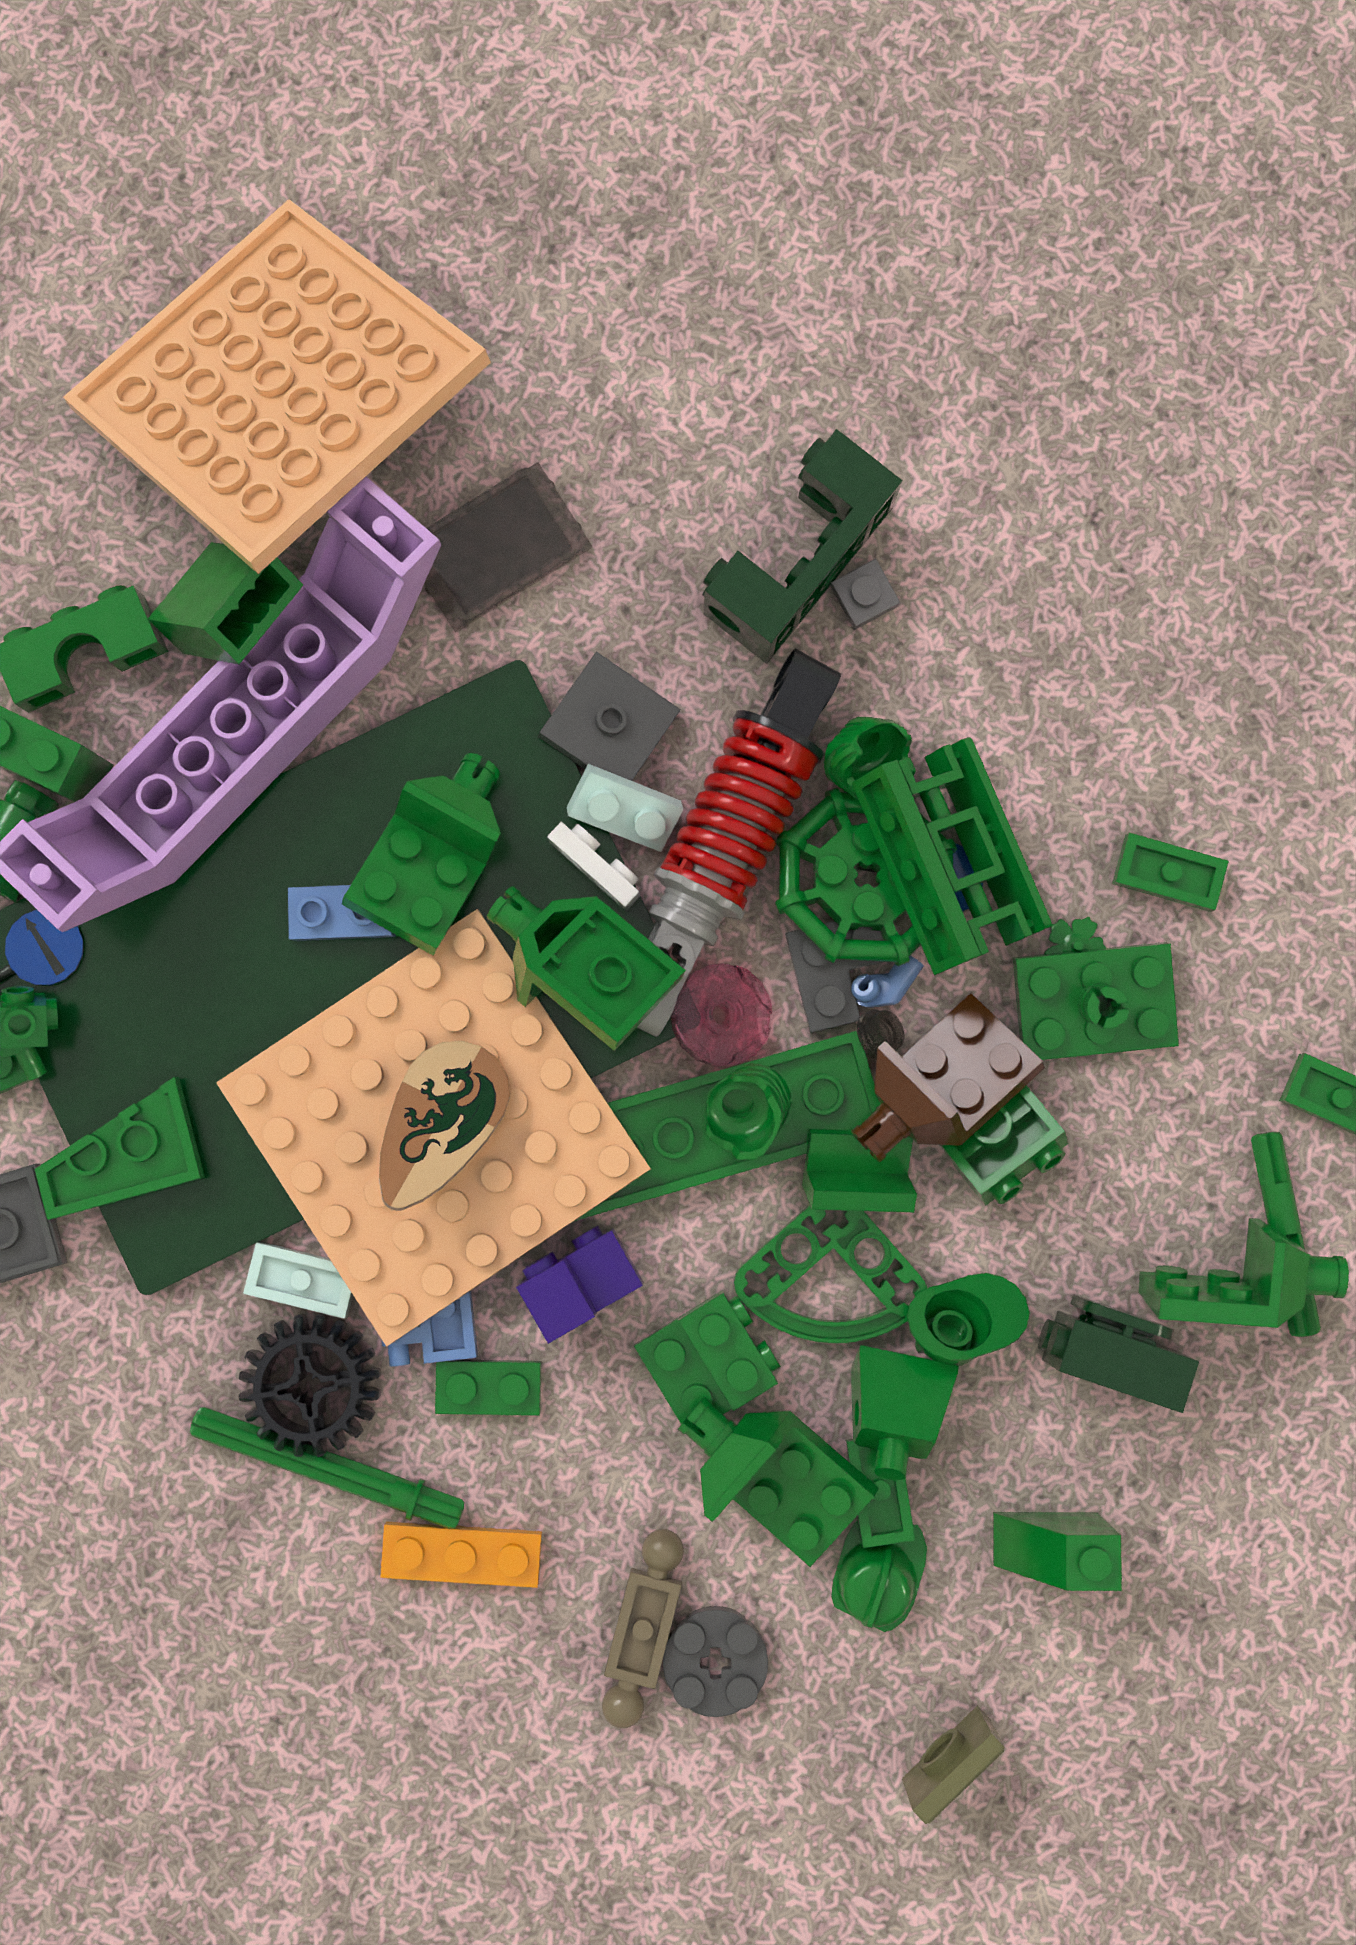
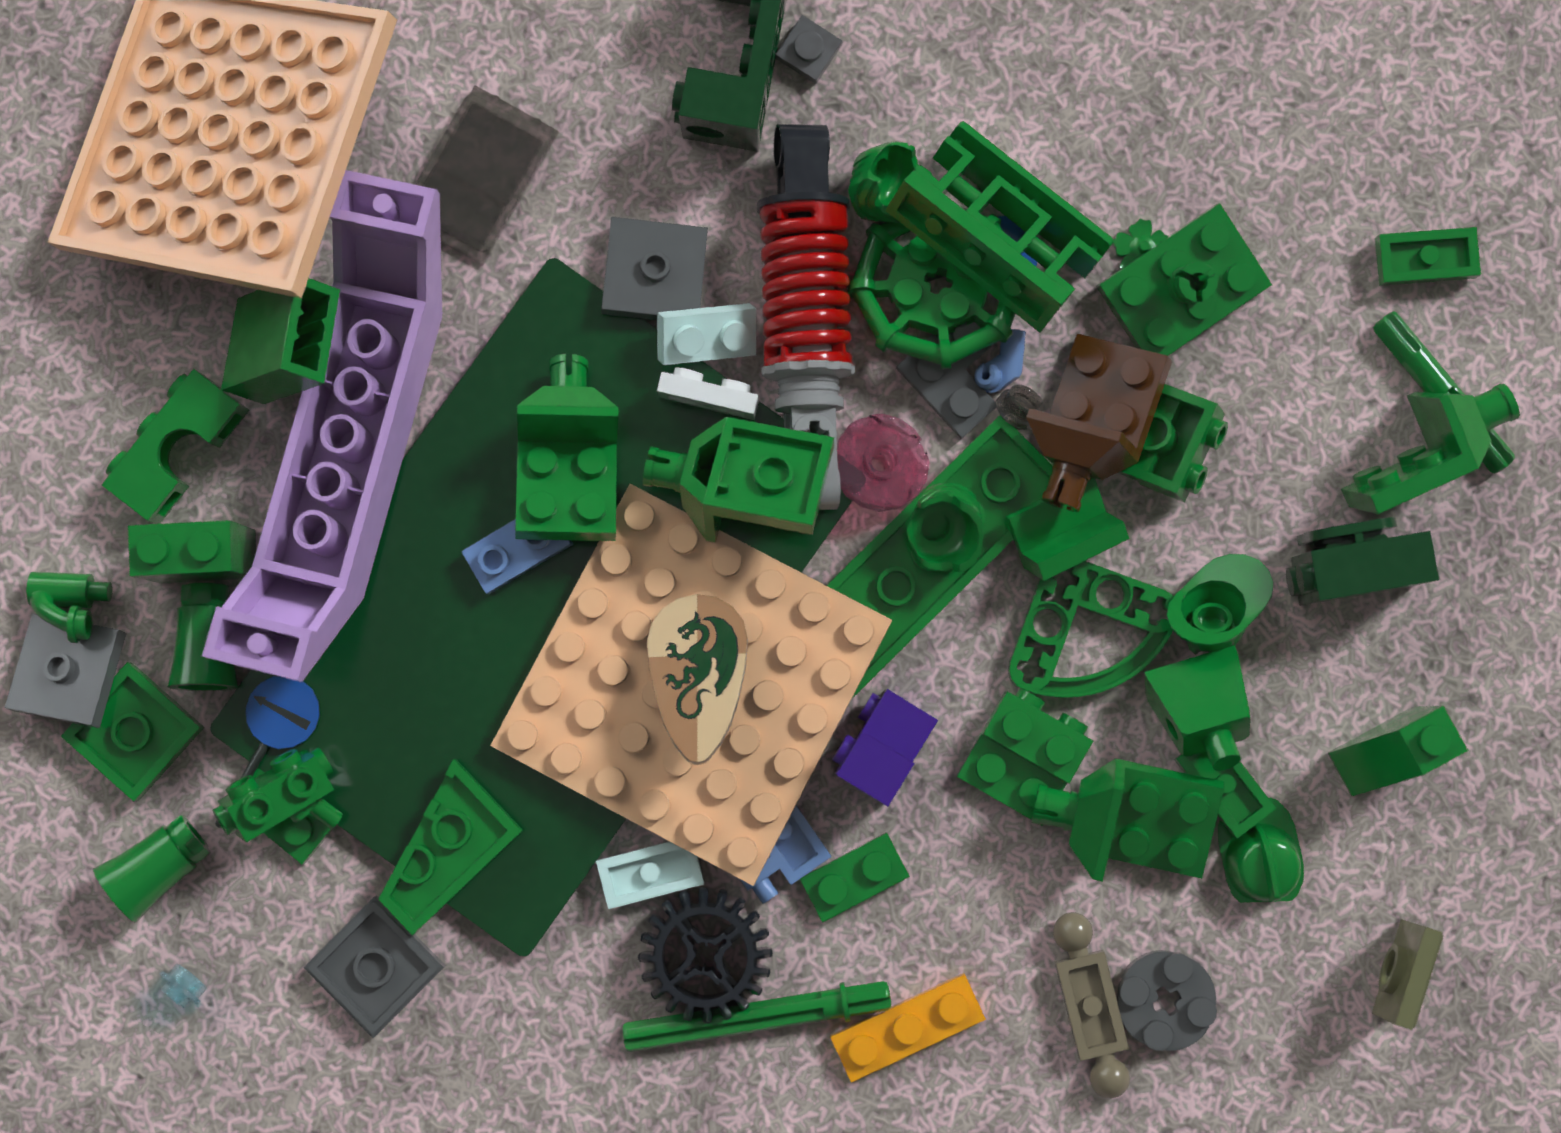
camera: 25 degrees left, 0 degrees up
(1170, 872) = (1187, 144): green plate -> none

